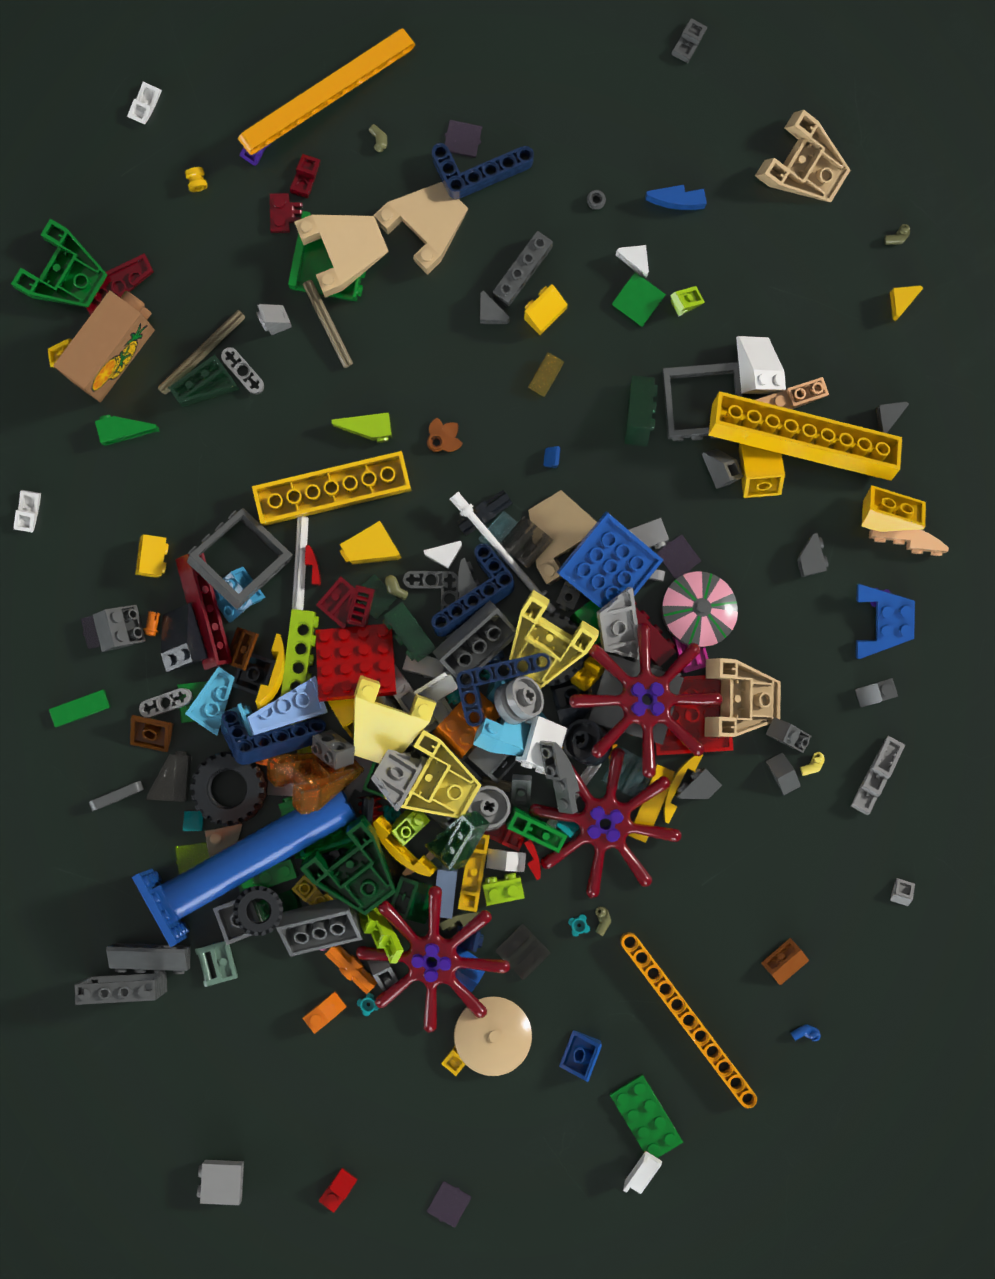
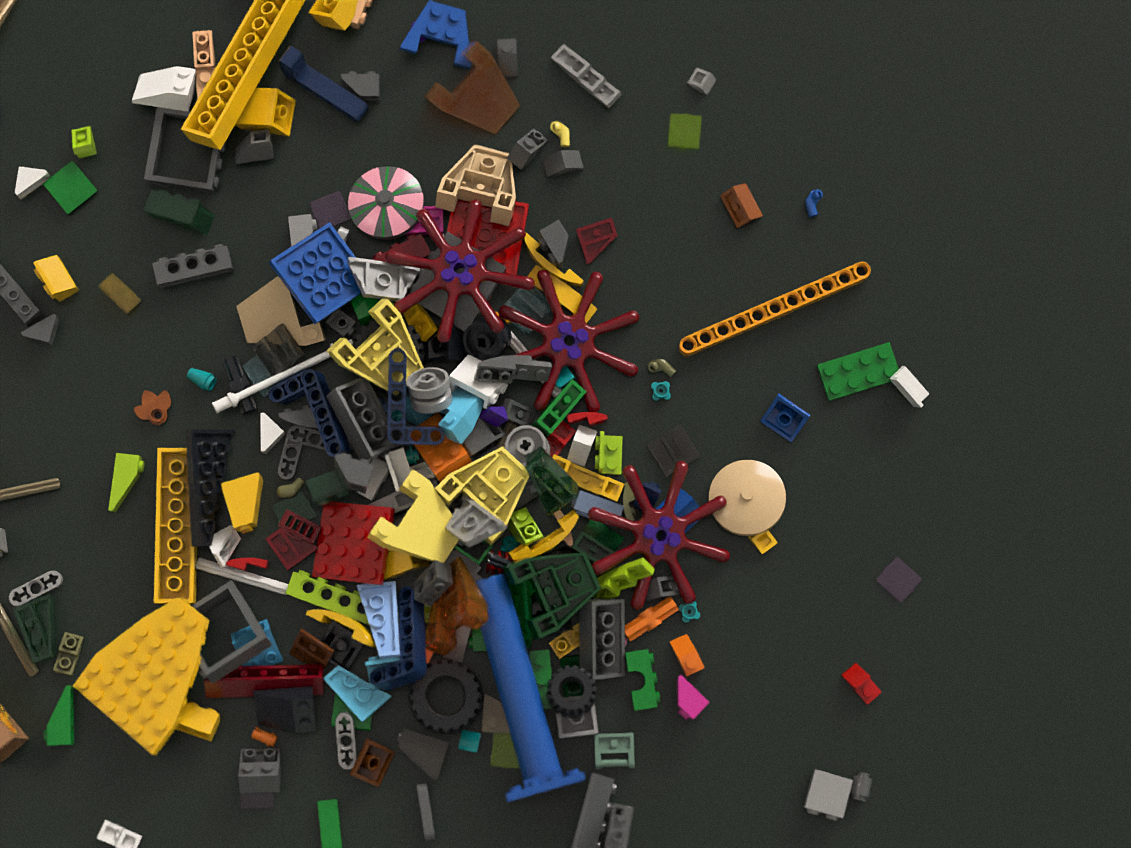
camera: 80 degrees left, 5 degrees down
(183, 498) = (147, 673): none -> yellow wing
(187, 418) = (68, 654): none -> olive slope
(237, 1213) = (861, 786): none -> dark grey brick
(278, 1026) = (689, 700): none -> dark pink slope
(306, 969) = (641, 662): none -> green arch
(325, 537) = (224, 544): none -> white slope
(385, 504) = (206, 471): none -> black wing
(418, 647) = (353, 472): none -> dark grey slope
(481, 476) = (203, 379): none -> teal cone
(511, 769) = (494, 415): none -> dark purple slope
(551, 457) = (202, 307): blue slope -> none
(582, 409) = (203, 270): none -> dark grey brick
(716, 824) = (596, 237): none -> dark red wing
(811, 488) = (296, 69): none -> dark blue beam
(830, 677) = (481, 96): none -> clear orange wedge
(847, 887) = (684, 131): none -> clear neon green piece

